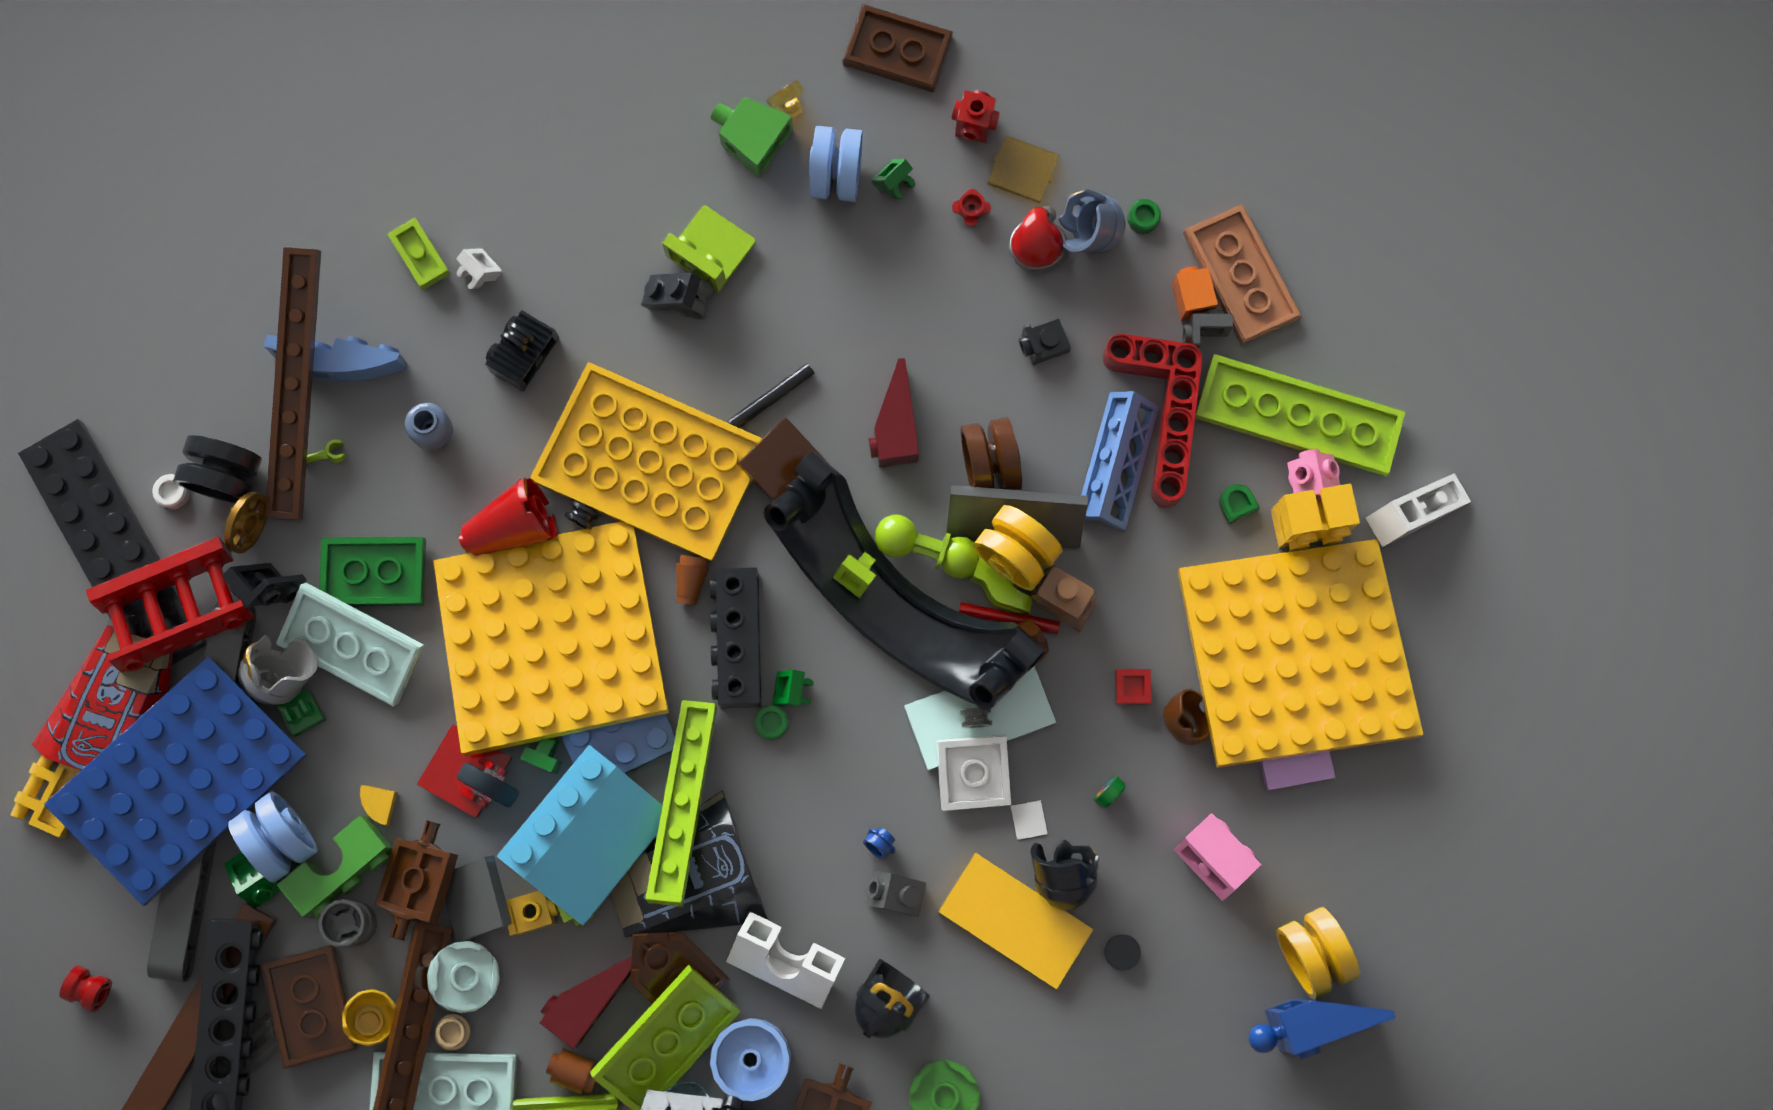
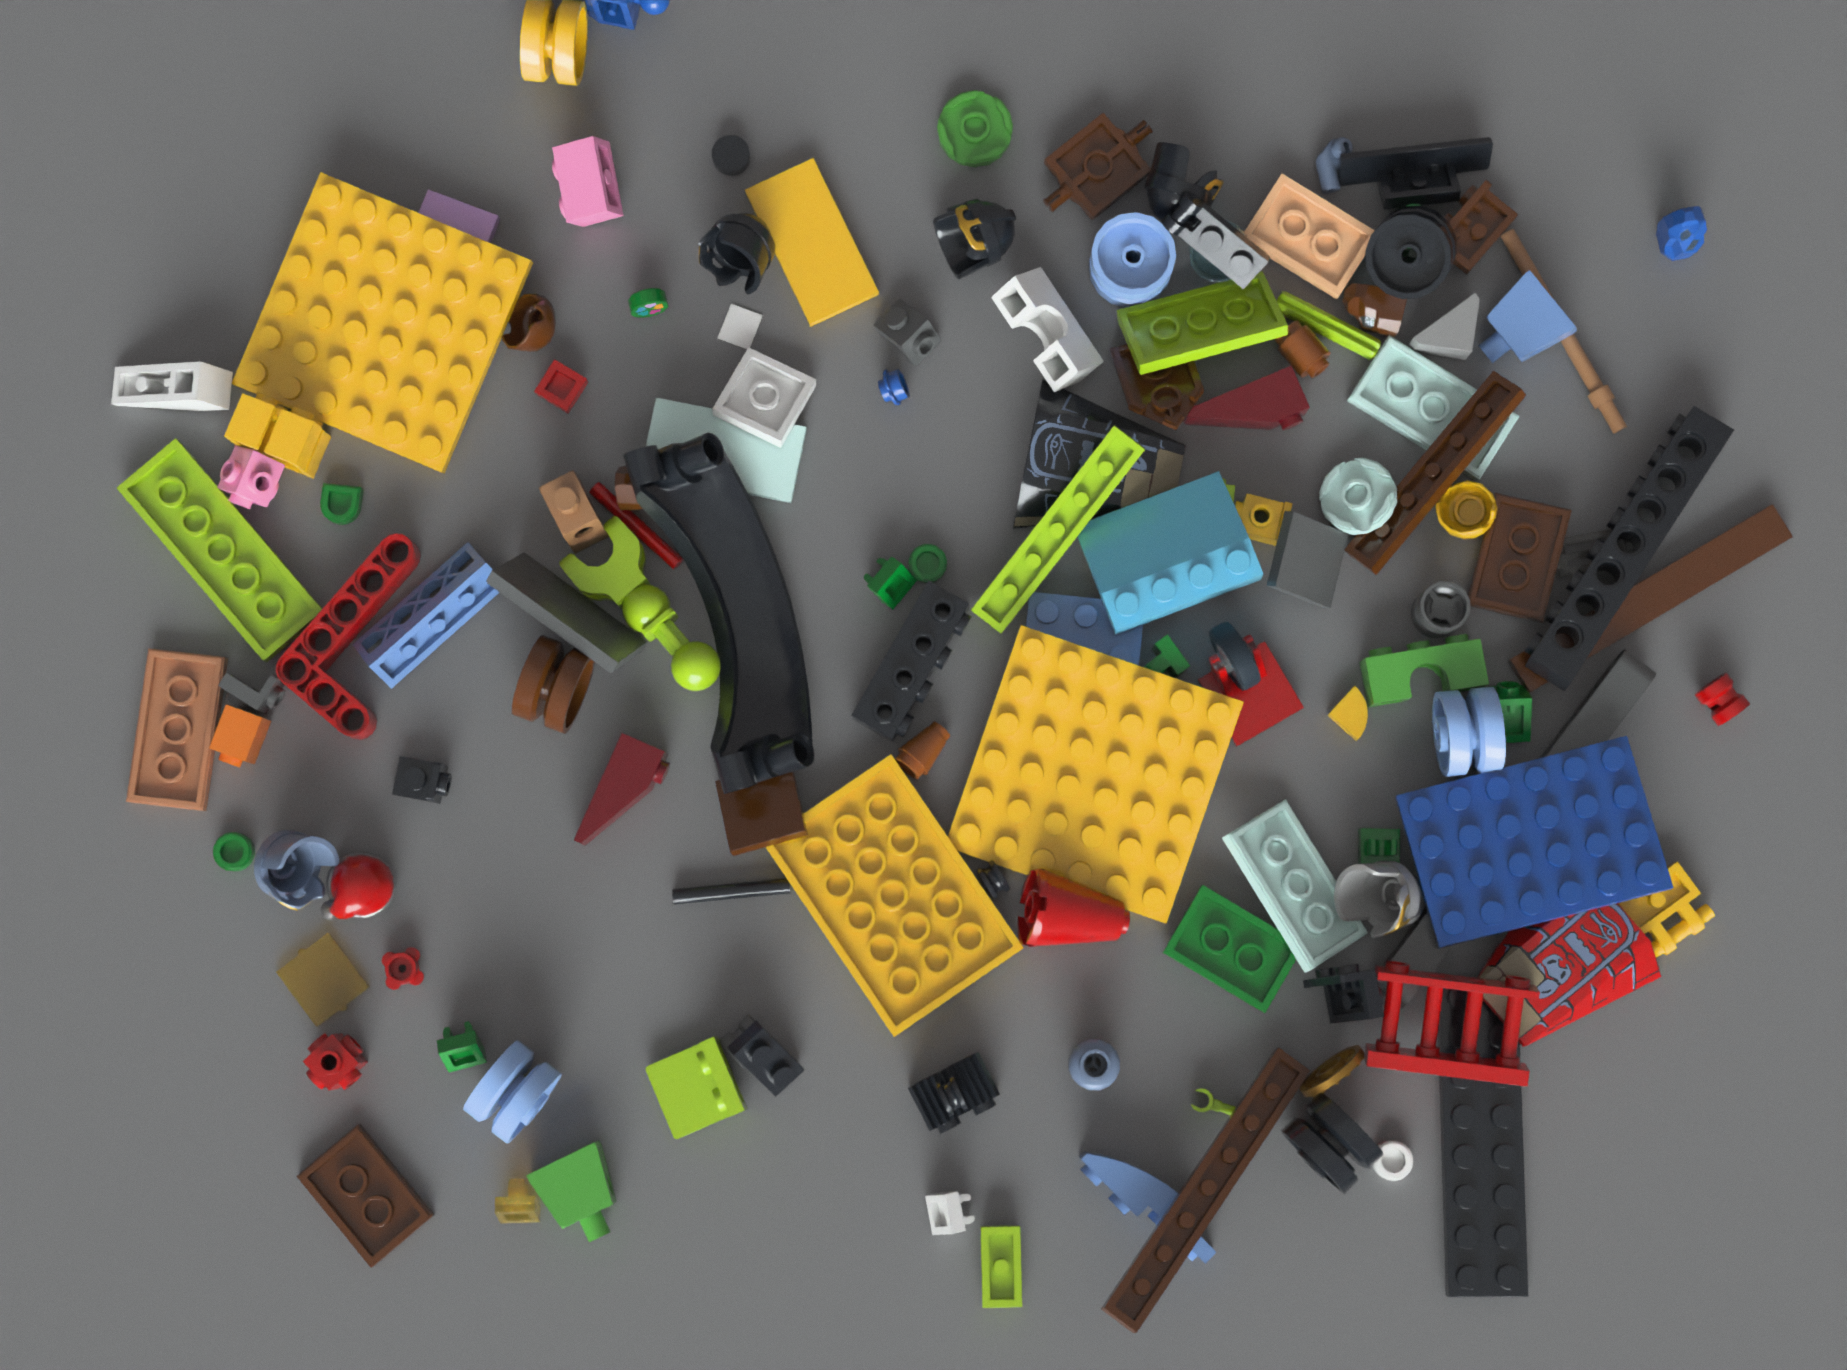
camera: 145 degrees left, 5 degrees up
(416, 880) = (1353, 611): reddish brown plate -> none
(452, 1032) = (1396, 454): tan plate -> none
(856, 574) = (757, 653): lime tile -> none
(975, 718) = (732, 442): clear smoke bush -> none
(1018, 547) = (592, 566): yellow wheel -> none

